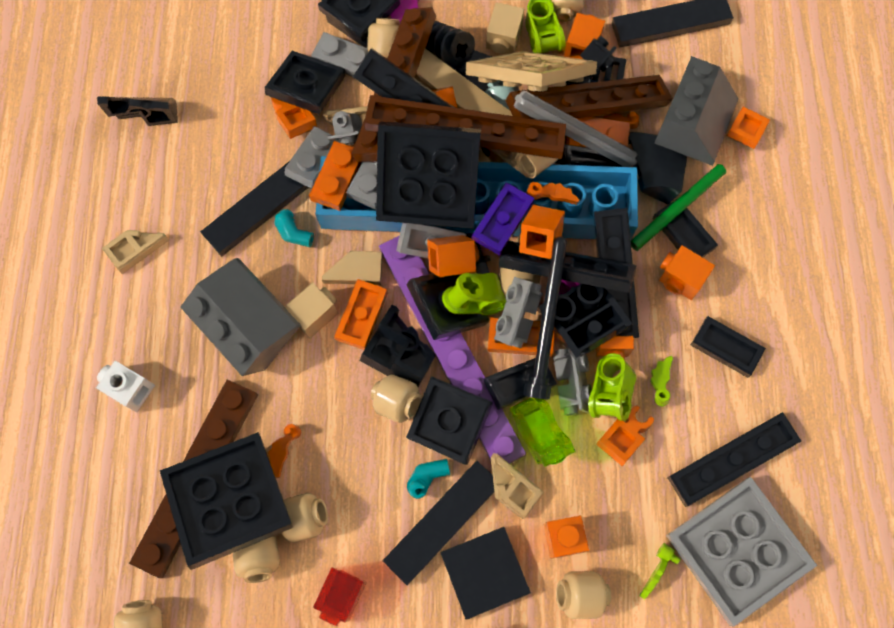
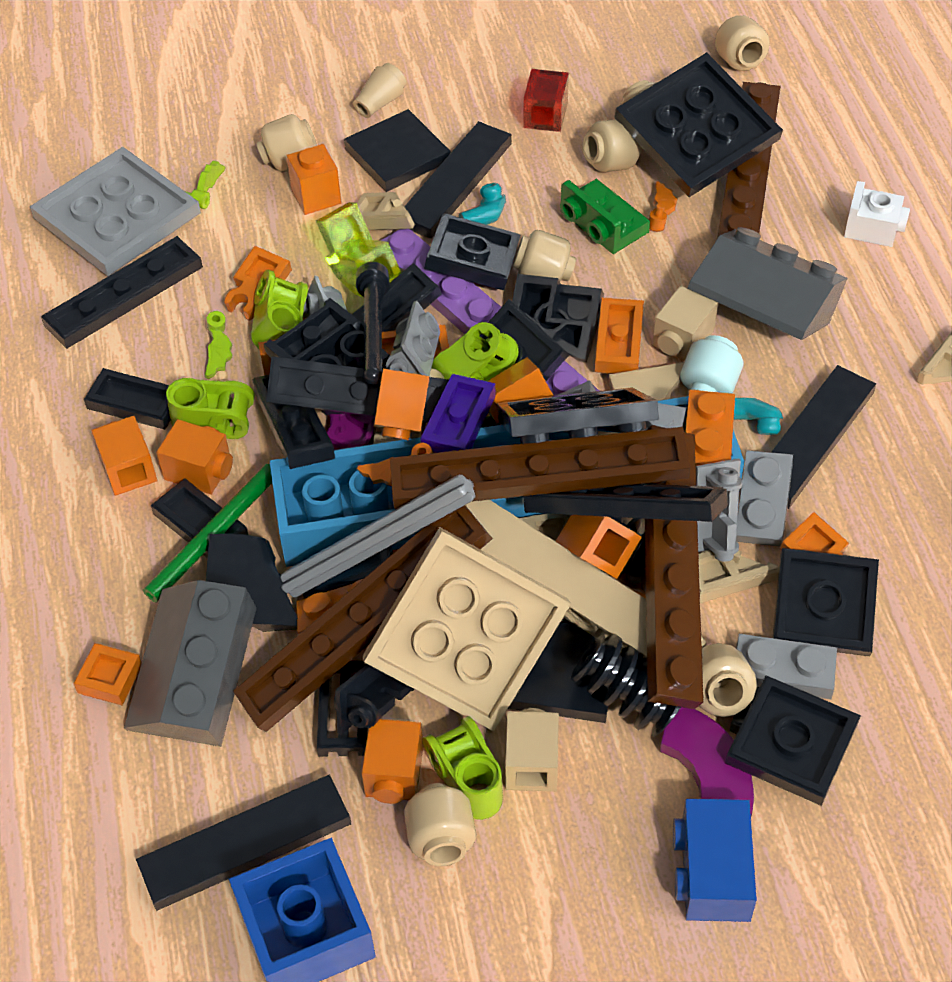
camera: 165 degrees right, 20 degrees down
(307, 264) = (712, 365): none -> light aqua head
(332, 446) = (602, 215): none -> green bracket
(669, 313) = (211, 404): none -> lime piece
(737, 286) = (124, 455): none -> orange brick

